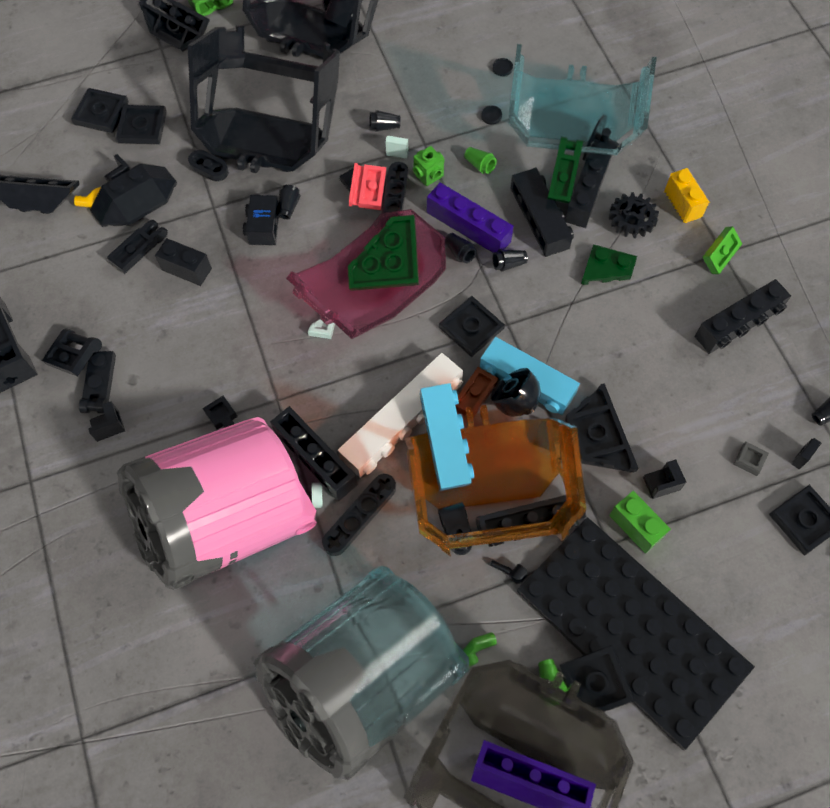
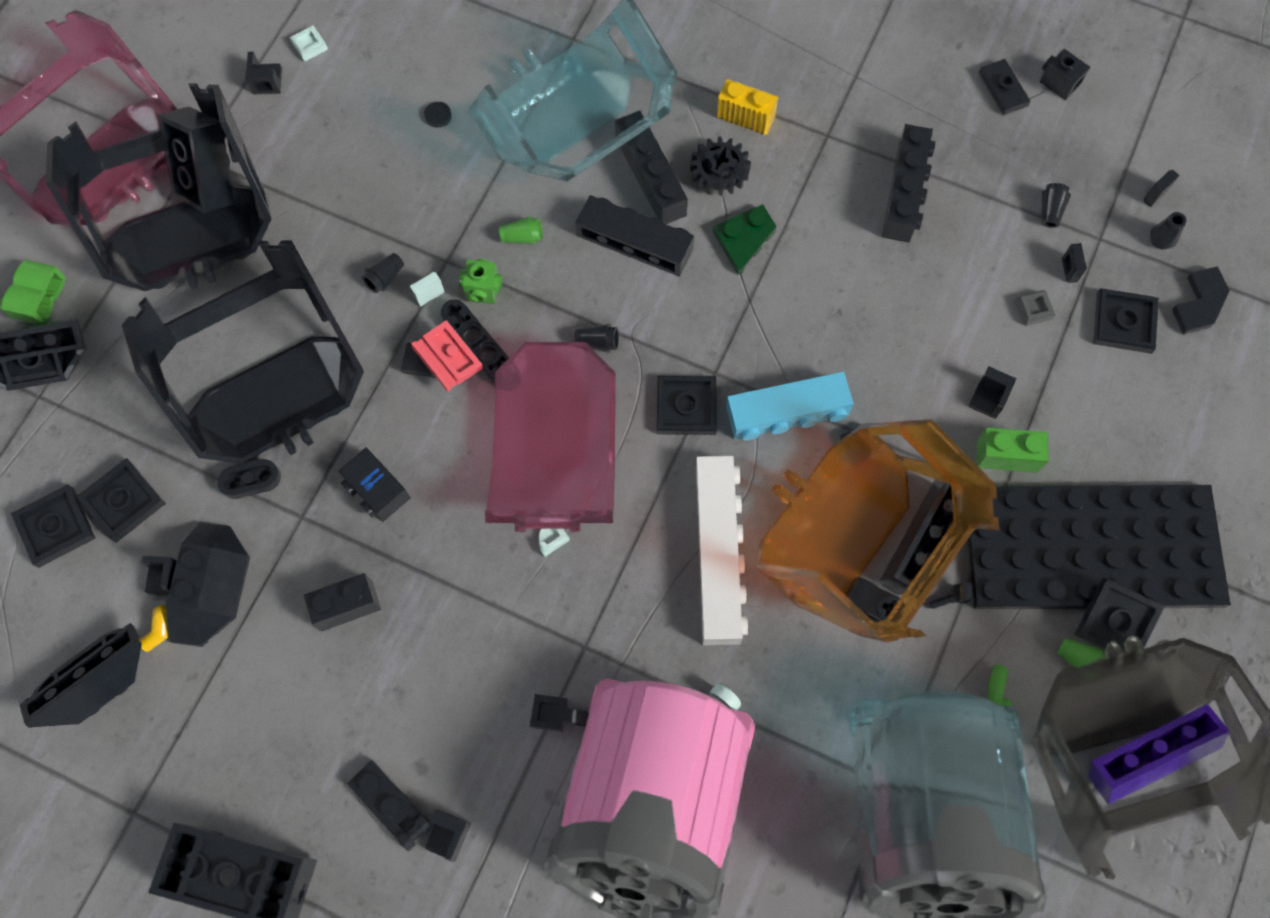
camera: 45 degrees left, 5 degrees up
(69, 358) = (333, 813): black plate -> none
(137, 246) = (270, 633): black hinge -> none
(288, 200) = (376, 439): black cone -> none
(314, 453) = (684, 663): black brick -> none
(355, 511) = (774, 677): black beam -> none
(388, 258) = (551, 410): dark green plate -> none
(445, 436) = (786, 531): medium azure brick -> none
(469, 218) = (577, 301): dark purple brick -> none
(476, 391) = (758, 465): copper plate -> none
(491, 115) = (480, 174): black piece -> none
(507, 259) = (652, 311): black cone -> none
(518, 394) = (805, 432): black cylinder -> none
(565, 170) = (628, 175): dark green plate -> none
(596, 134) = (612, 113): black shield -> none
(601, 433) = (893, 396): black wing -> none
(722, 250) = (828, 134): bright green plate -> none

